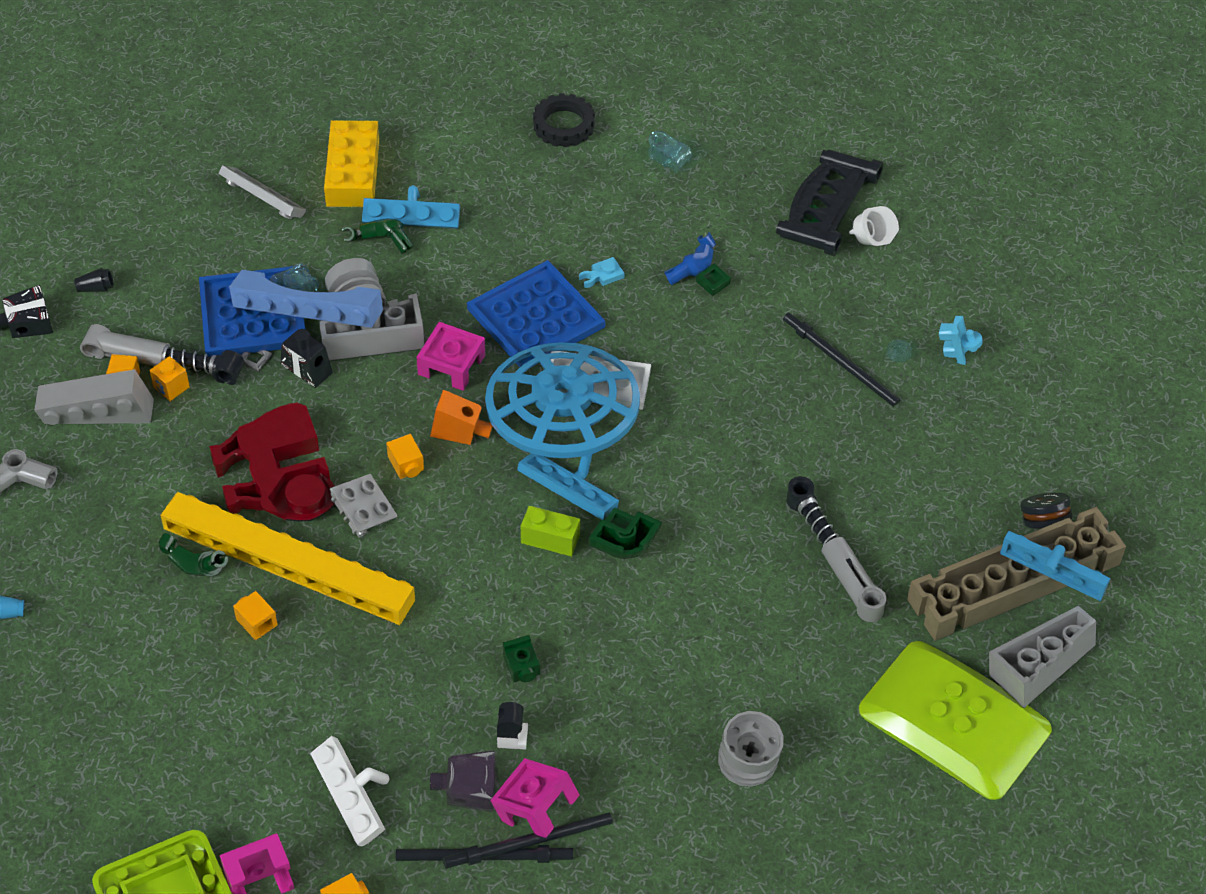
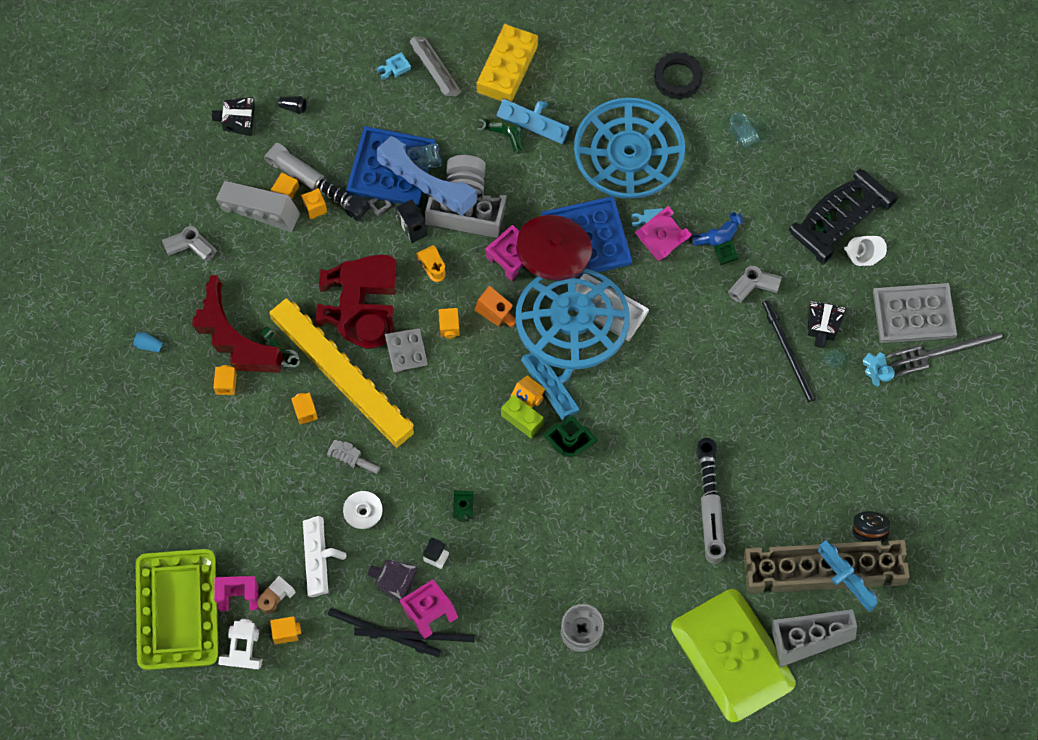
camera: 25 degrees right, 15 degrees up
(131, 617) = (225, 380): none -> light orange brick
(145, 572) = (225, 339): none -> dark red arch
(211, 204) = (395, 65): none -> medium azure plate
(310, 857) = (274, 594): none -> leg
(337, 651) = (349, 454): none -> light grey piece
(353, 399) = (432, 263): none -> light orange piece
(385, 700) = (359, 501): none -> white dish
(503, 330) = (553, 247): none -> dark red dish
(542, 198) = (629, 139): none -> dark azure dish
(546, 497) = (529, 391): none -> light orange brick
(626, 281) = (662, 234): none -> dark pink panel
(761, 294) = (745, 285): none -> light grey piece
(867, 313) = (824, 322): none -> black torso
(966, 274) = (914, 313): none -> light grey plate
(1002, 315) = (924, 356): none -> flat silver piece

